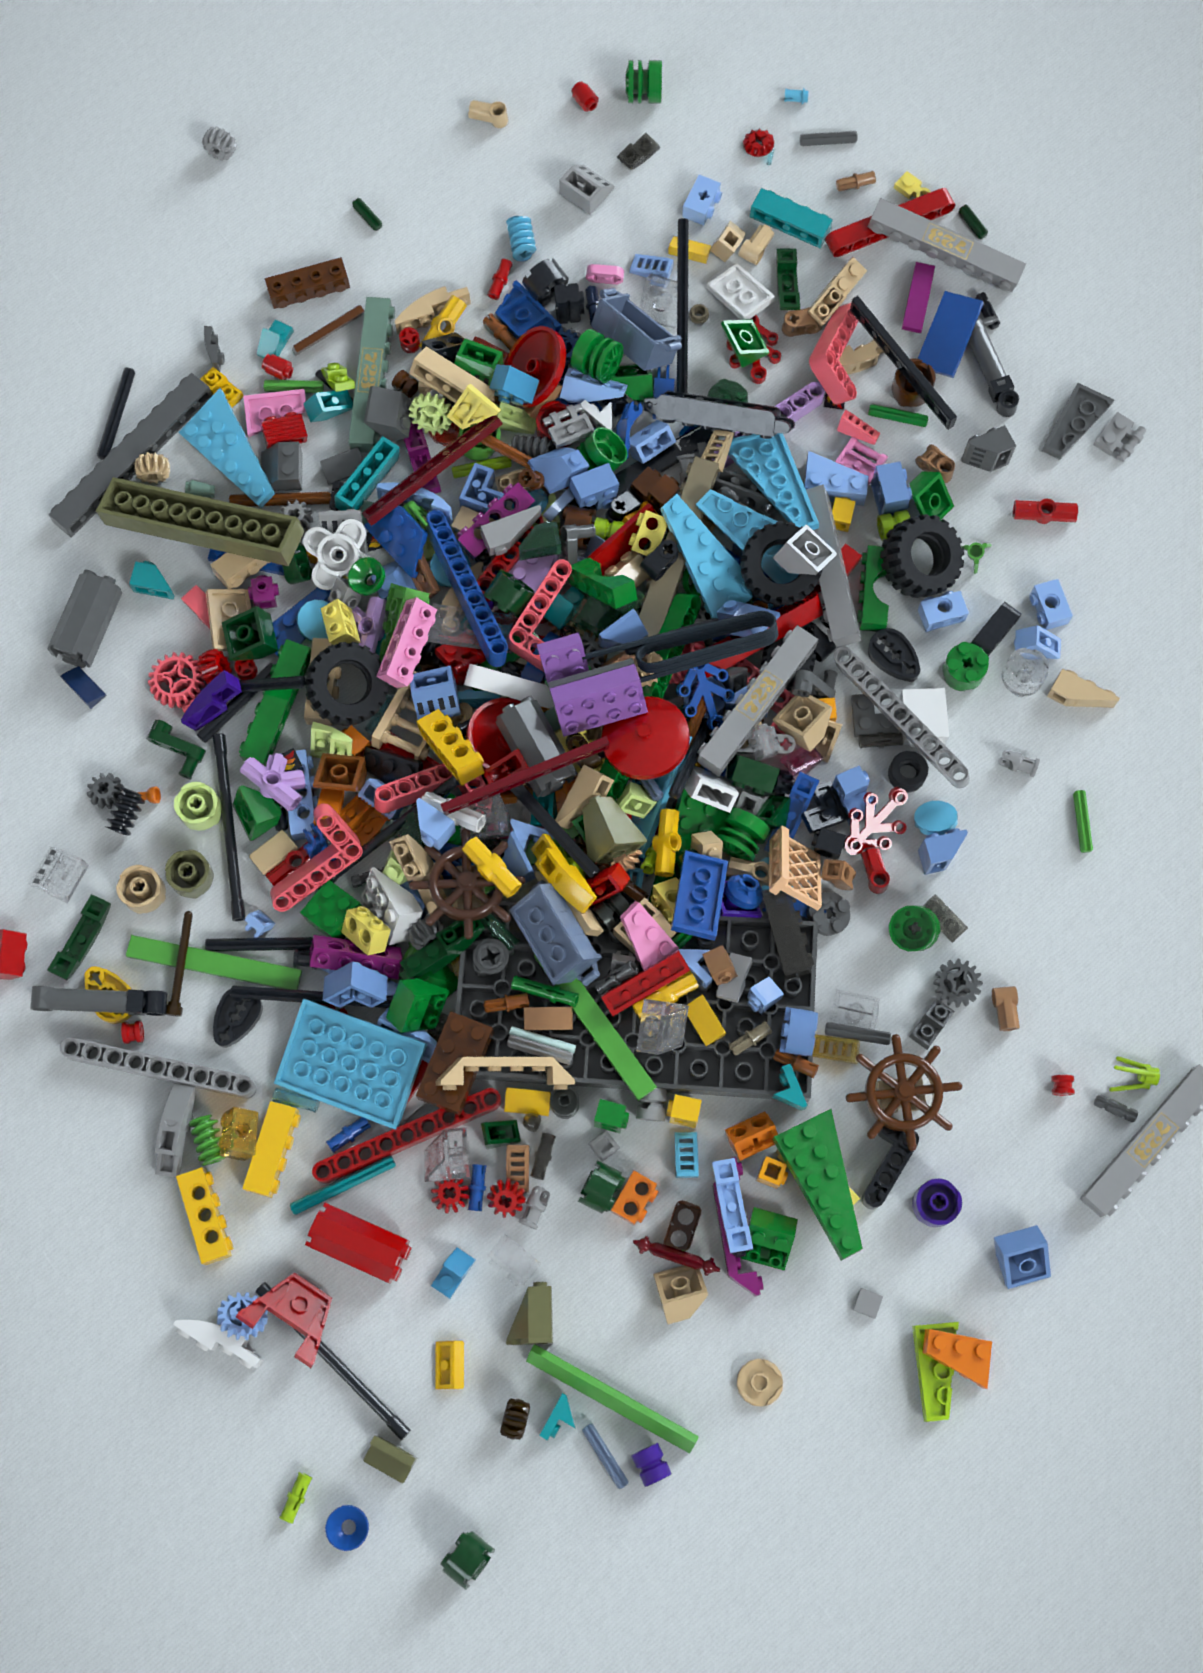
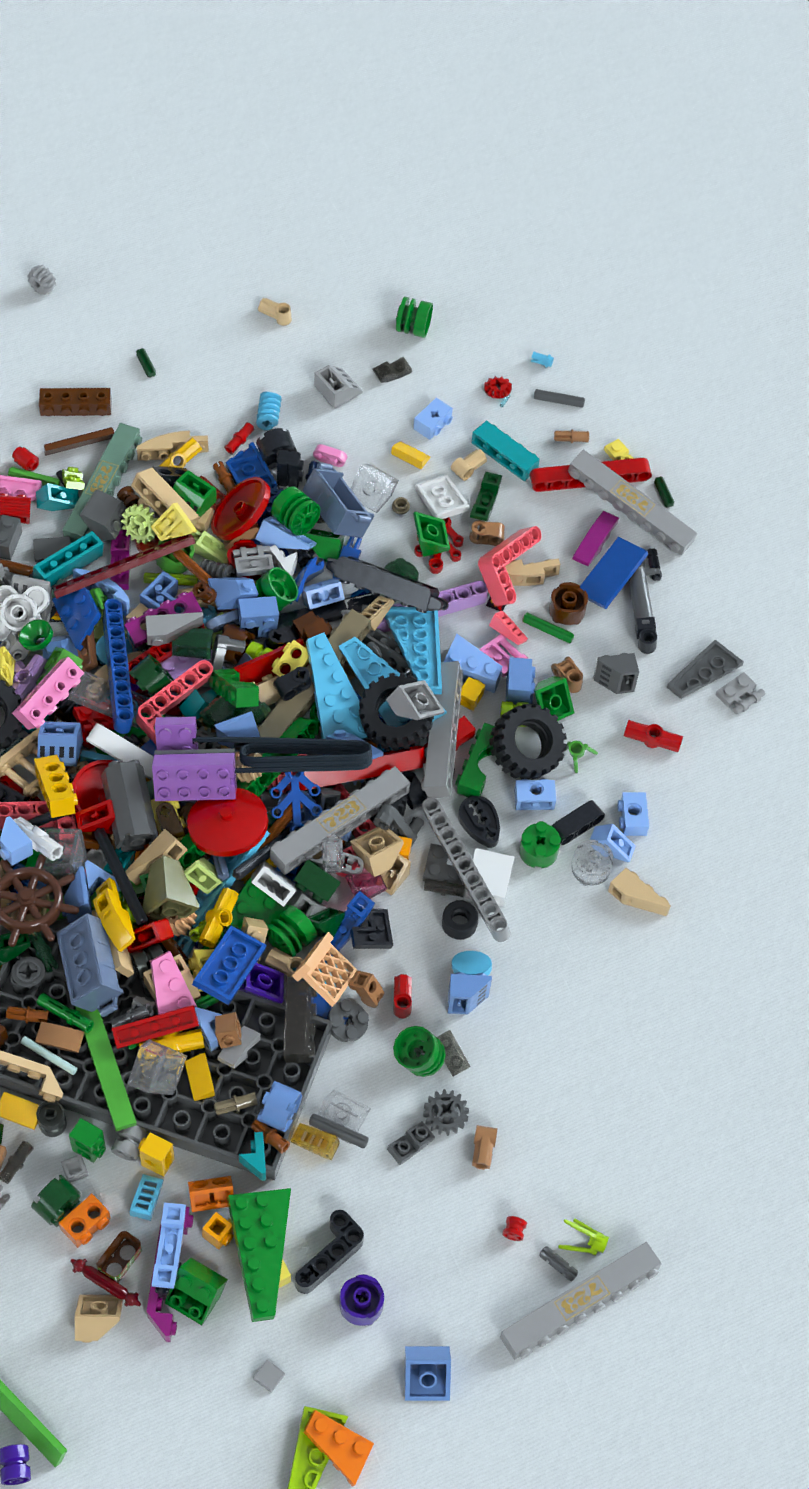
camera: 10 degrees right, 15 degrees down
(274, 339) = (32, 437): teal slope -> none
(411, 335) = (144, 462): red wheel -> none
(491, 867) = (51, 889): yellow piece -> none
(513, 385) = (215, 516): dark azure brick -> none
(525, 776) = (107, 820): dark red tile -> none
(532, 1121) = (17, 1129): clear smoke hinge -> none
(539, 1049) = (30, 1054): light grey axle -> none
(584, 96) = (361, 317): red brick -> none
(660, 262) = (379, 457): light blue slope -> none
(682, 304) = (385, 492): black axle -> none
(728, 241) = (444, 455): tan slope -> none
(742, 895) = (273, 976): blue piece -> none
(759, 1382) = (143, 1420): tan tile -> none
(764, 995) = (259, 1067): light blue slope -> none
(783, 783) = (341, 898): black gear -> none
(828, 843) = (368, 960): black brick -> none
(836, 291) = (524, 515): tan slope -> none
(851, 788) = (402, 919): medium blue brick -> none
(873, 823) = (413, 954): plant -> none
(903, 363) = (561, 582): black tile -> none
(903, 1092) = (359, 1193): reddish brown brick -> none
(1017, 761) = (563, 938): light grey piece -> none
(1083, 822) = (606, 1004): bright green axle -> none

